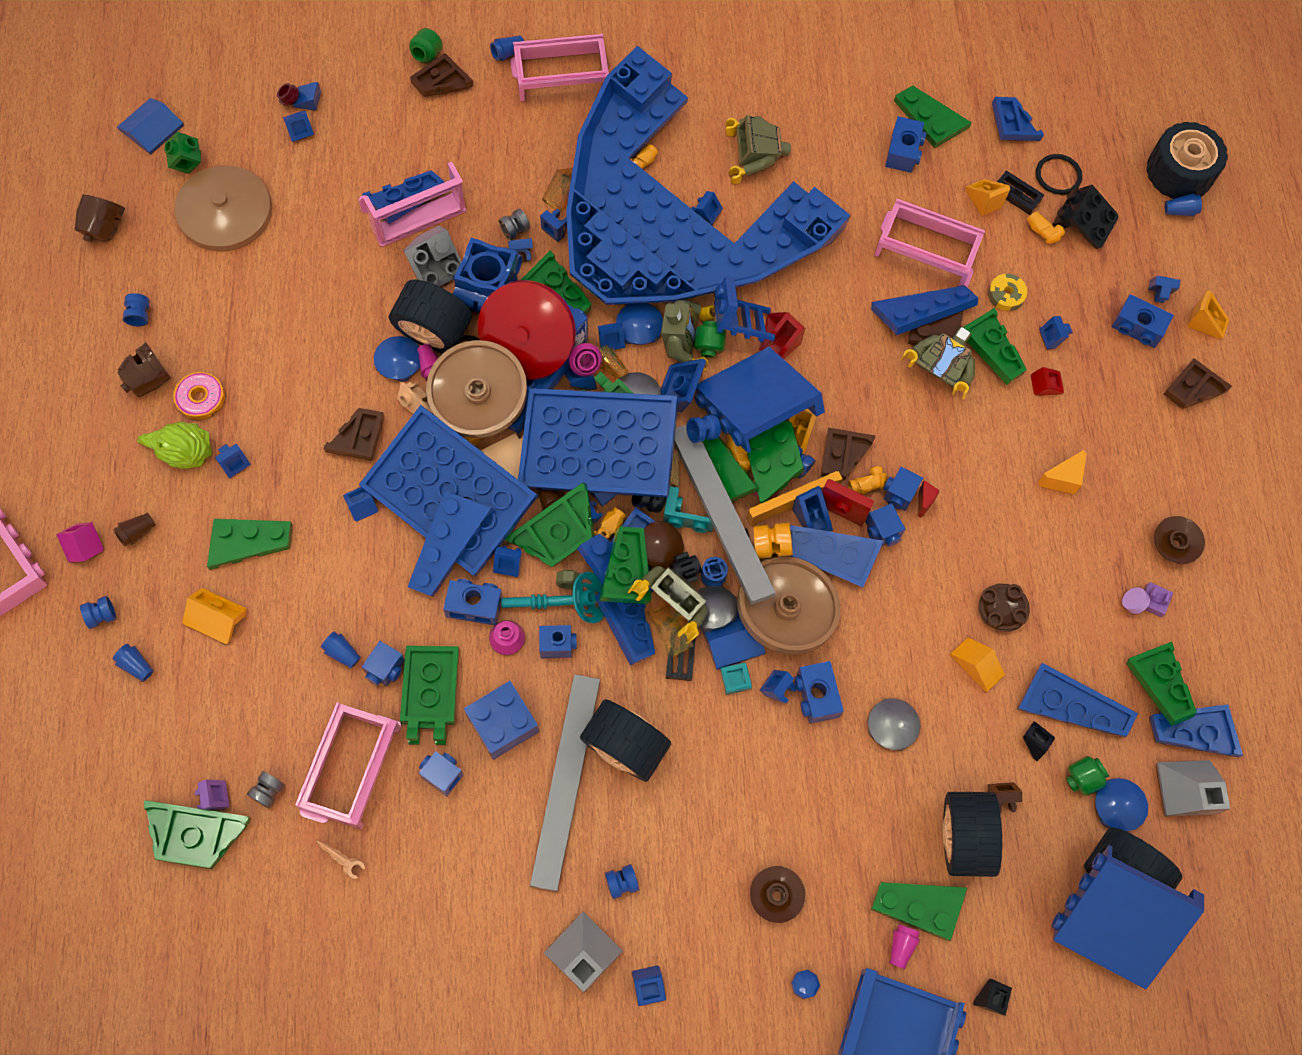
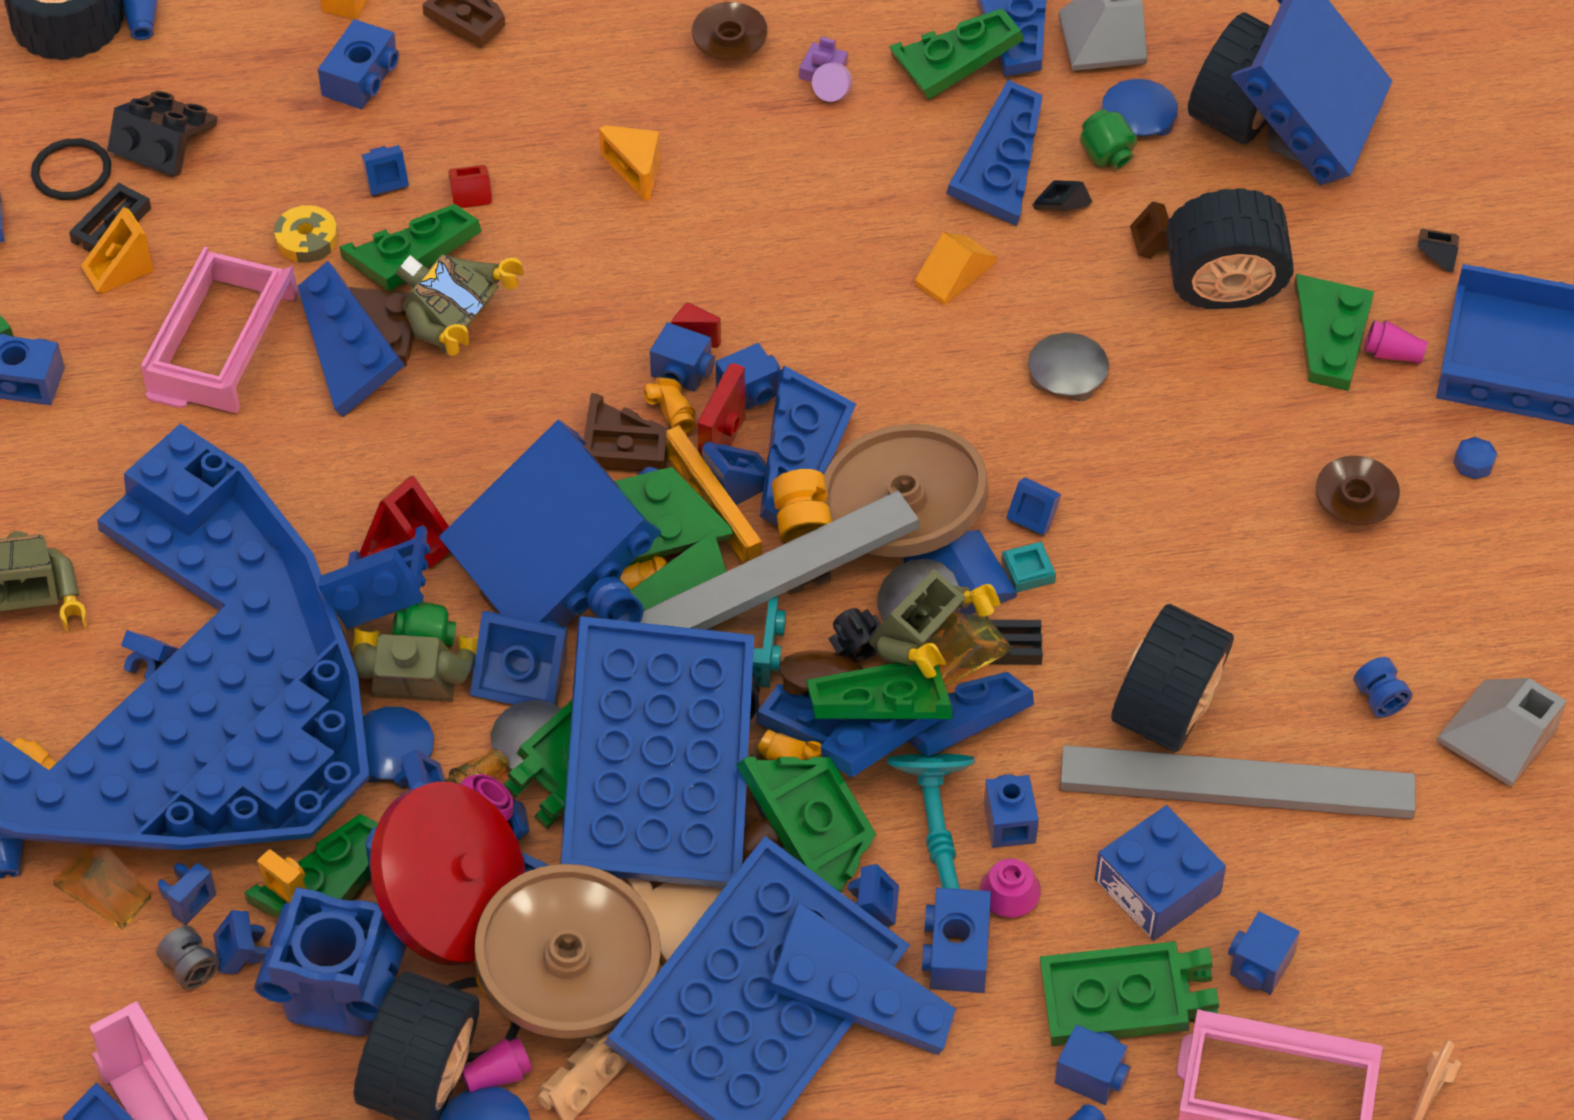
camera: 90 degrees left, 15 degrees down
(433, 256) = (265, 1080): light grey slope -> none
(547, 262) = (281, 874): none -> light orange plate
(566, 578) = (896, 804): olive tile -> none
(649, 985) = (1522, 648): blue slope -> none
(713, 577) = (858, 590): blue wheel -> none
(820, 677) = (1038, 450): blue brick -> none
(1004, 607) = (862, 234): reddish brown dish -> none
(1045, 229) = (177, 189): light orange arm -> none
(1163, 287) = (298, 37): blue tile -> none

